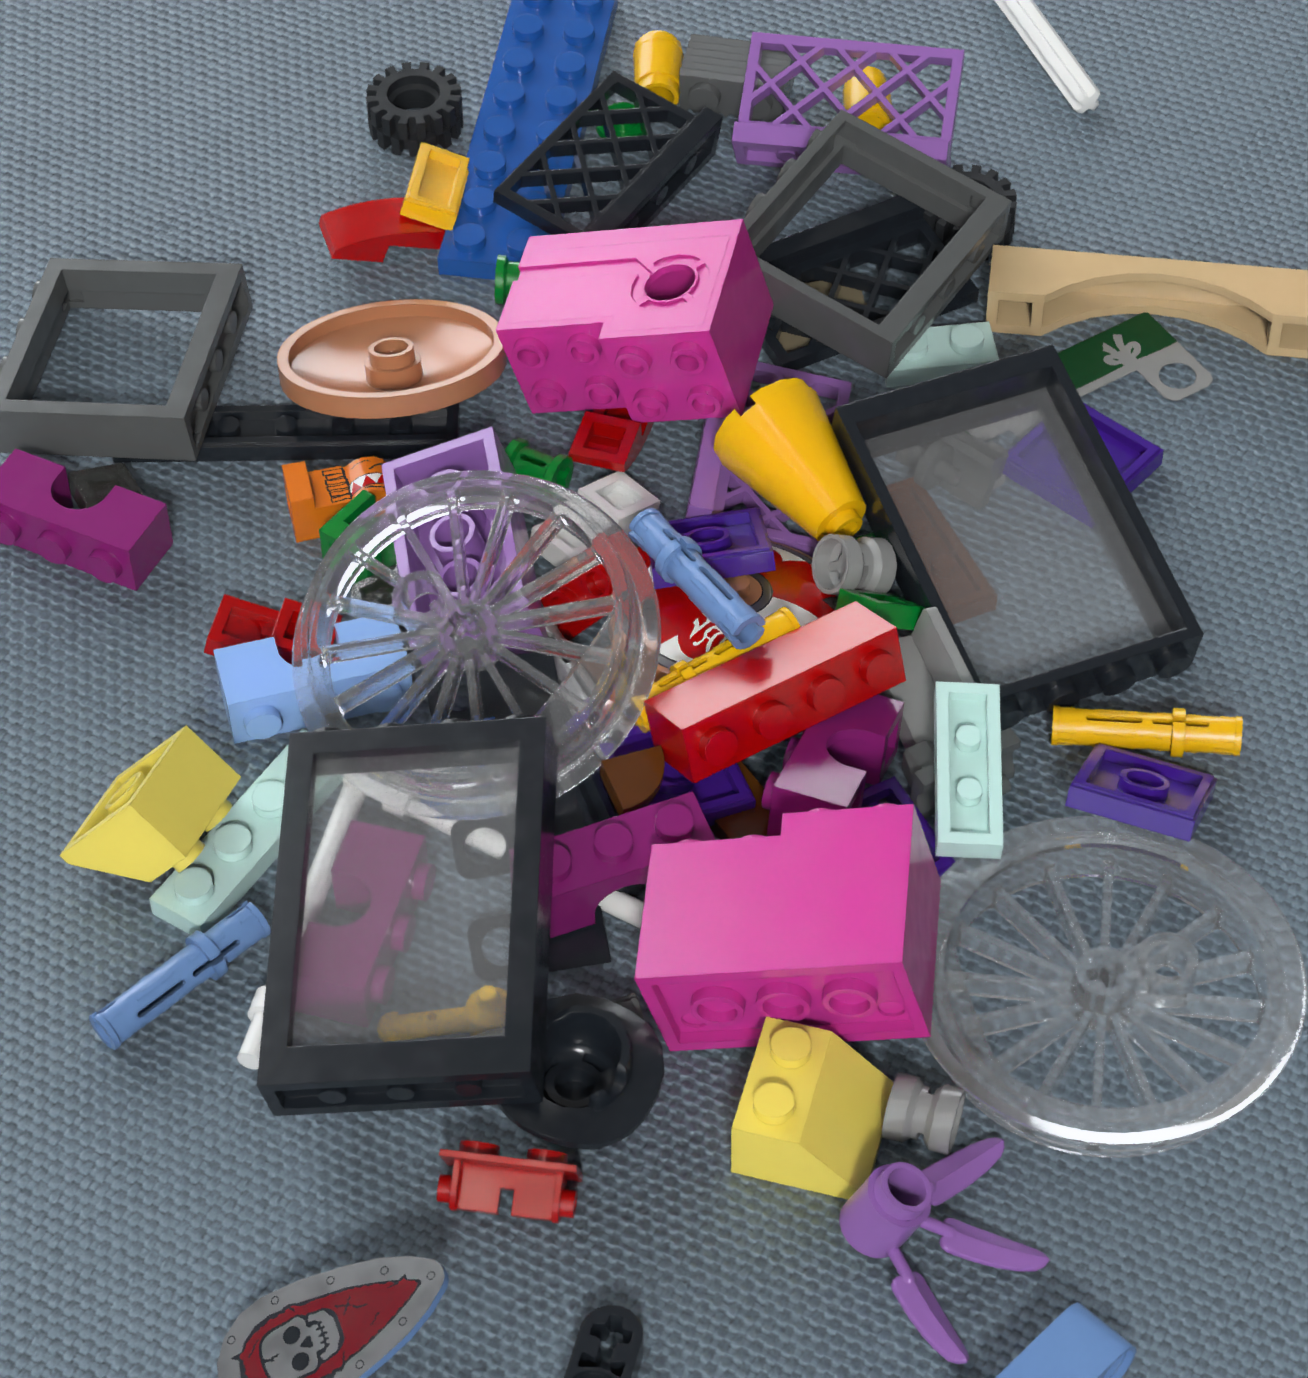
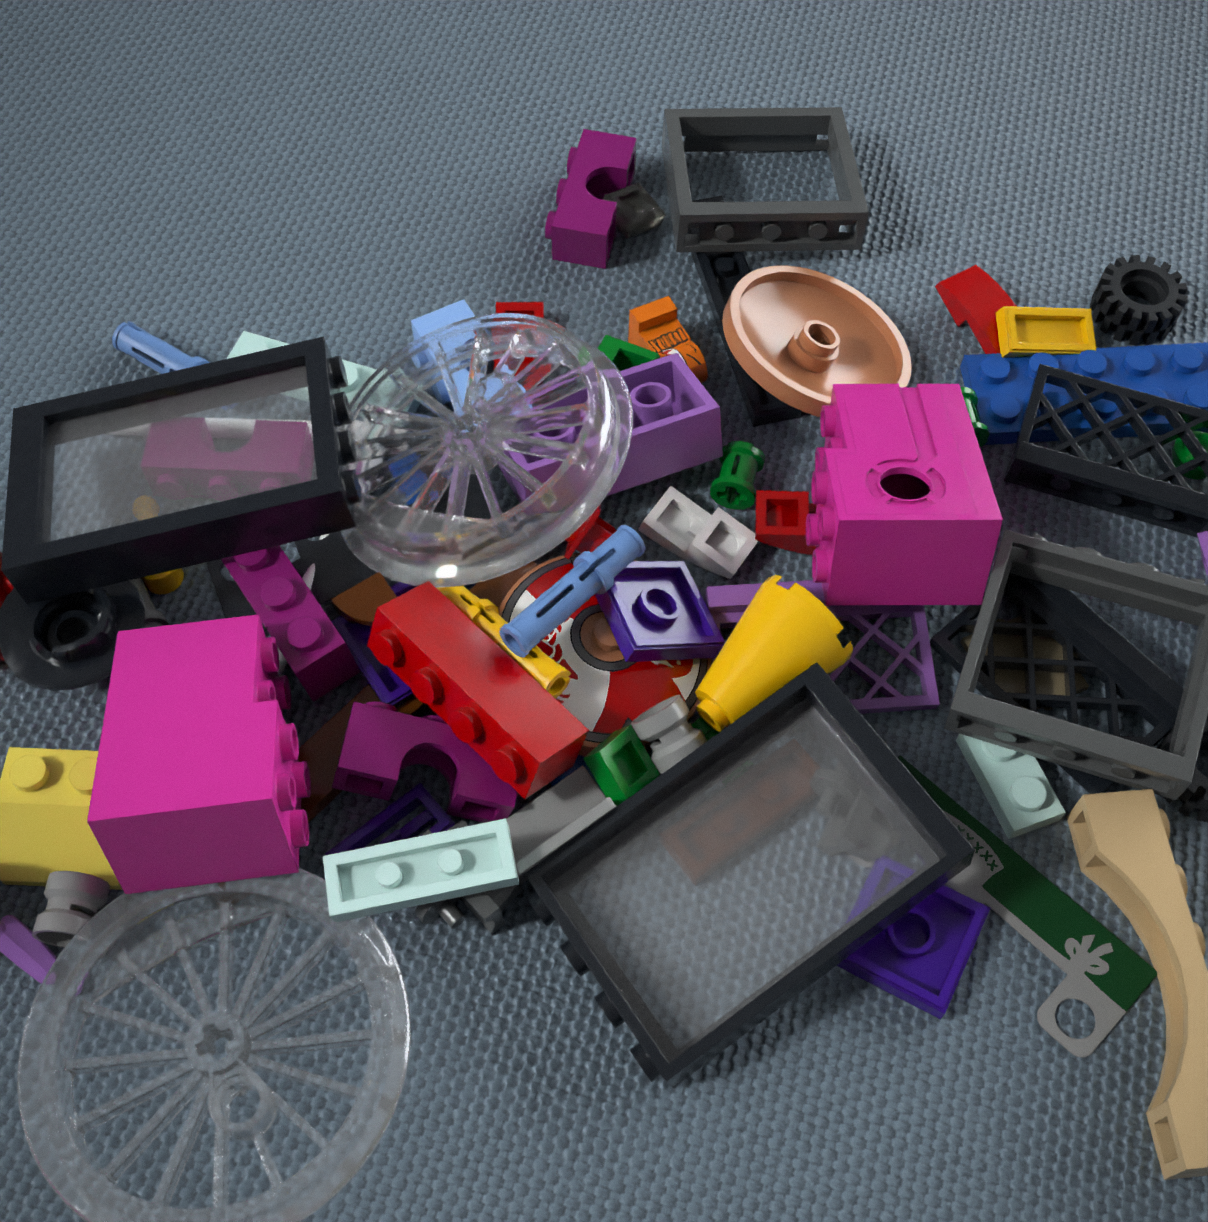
camera: 75 degrees right, 10 degrees up
(156, 811) = (304, 308): light yellow slope -> none
(1142, 791) = (459, 1052): dark purple tile -> none
(1147, 730) = (564, 1123): yellow pin -> none

